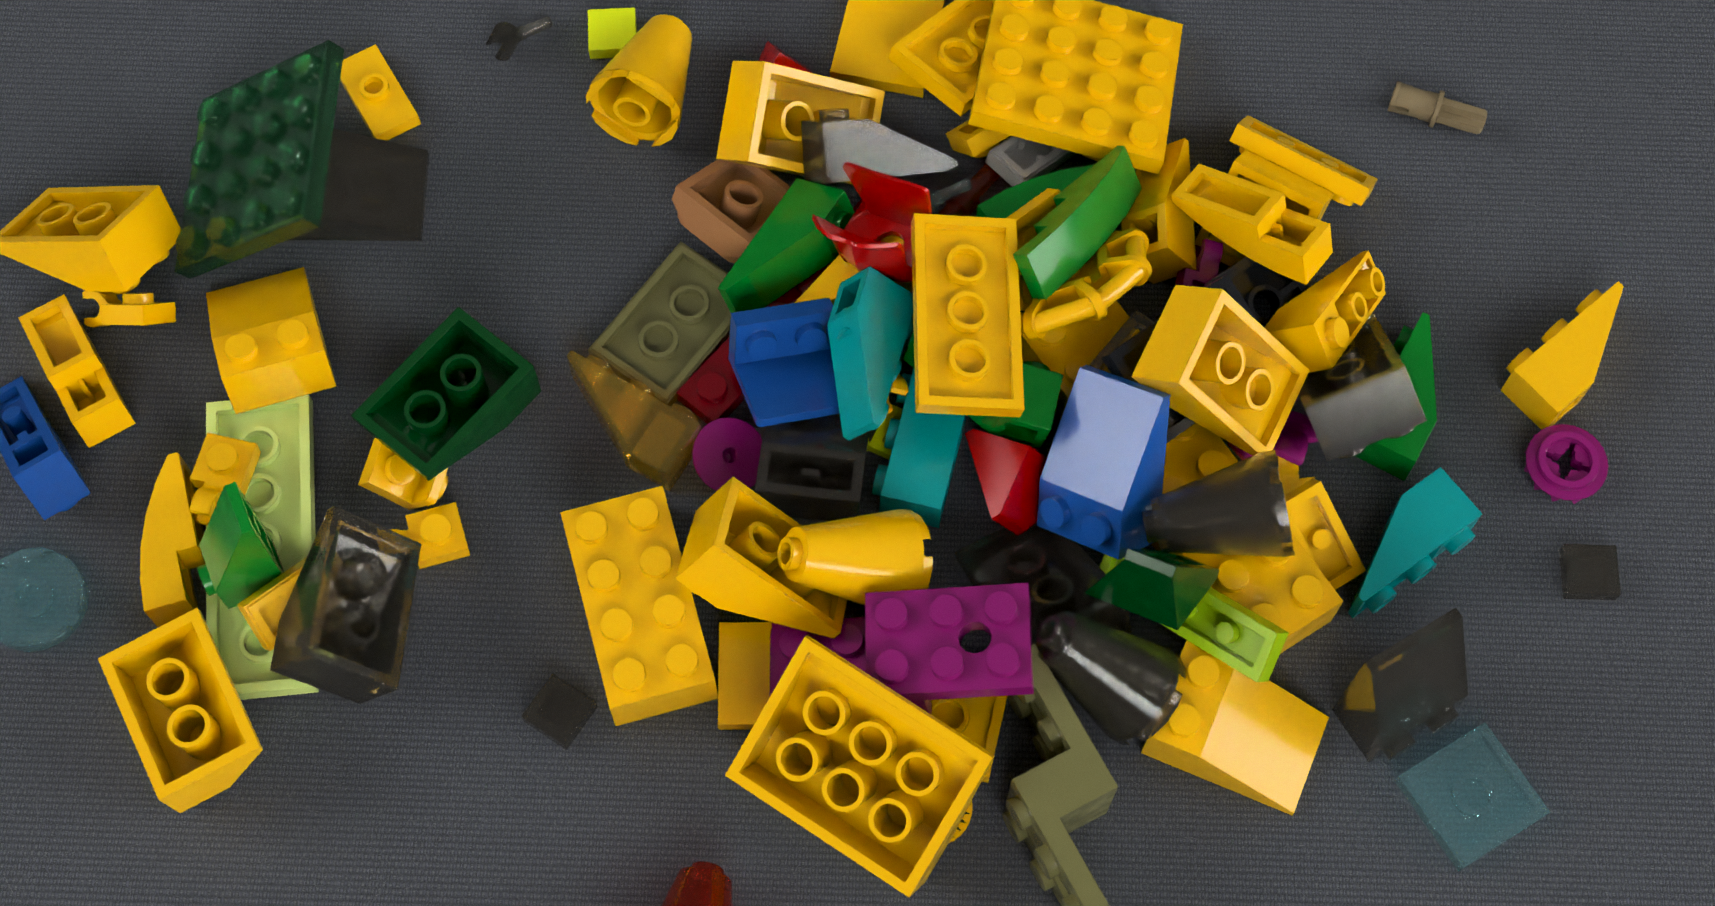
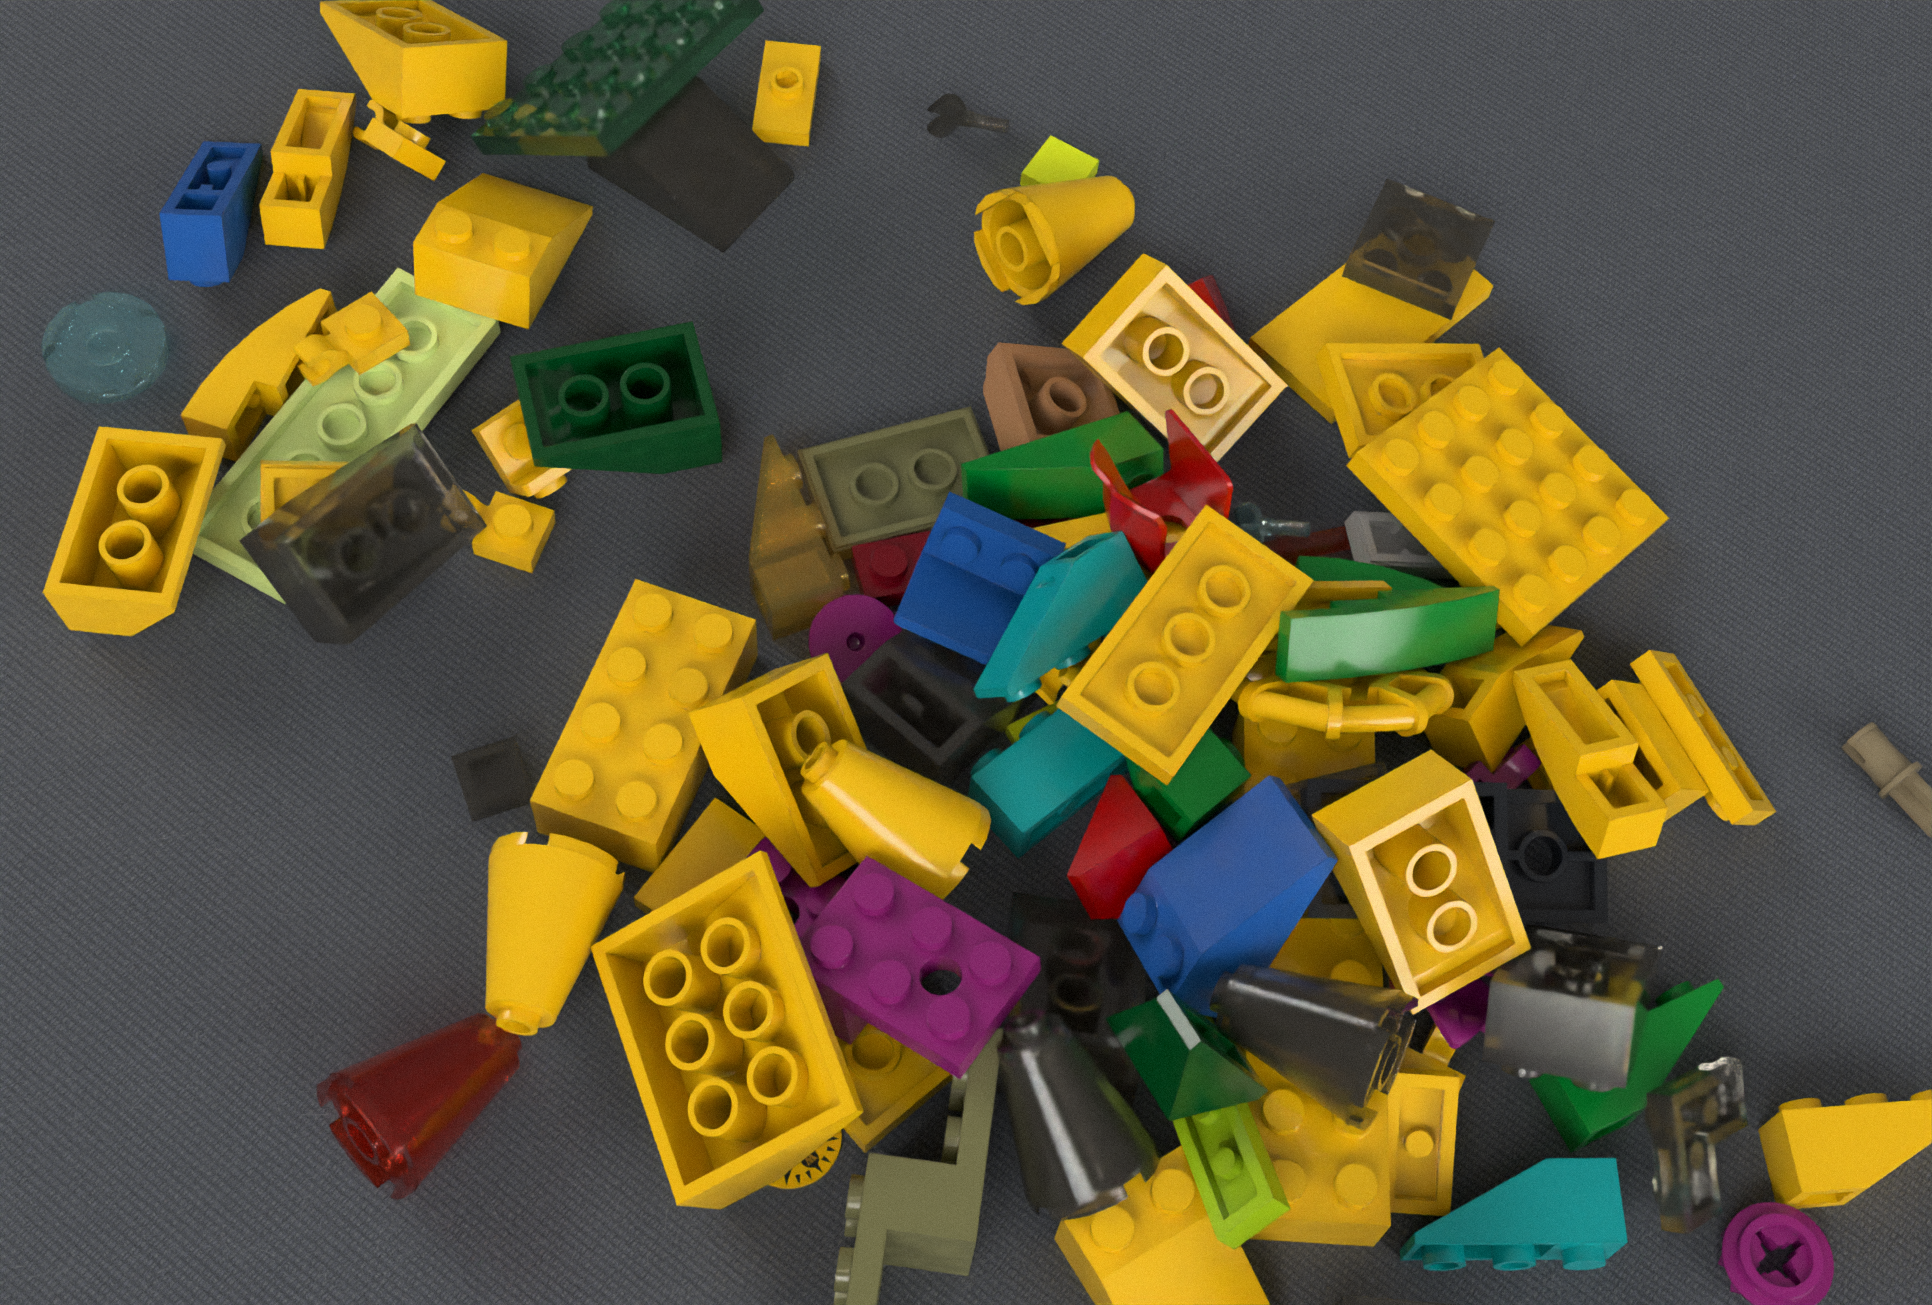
camera: 30 degrees right, 5 degrees down
(236, 550) = (303, 407): green slope -> none
(681, 784) = (540, 924): none -> yellow cone
(860, 141) = (1221, 424): clear smoke slope -> none
(974, 140) = (1350, 494): yellow plate -> none
(1330, 313) = (1605, 911): yellow slope -> none
(1465, 417) = (1684, 1125): none -> clear smoke plate

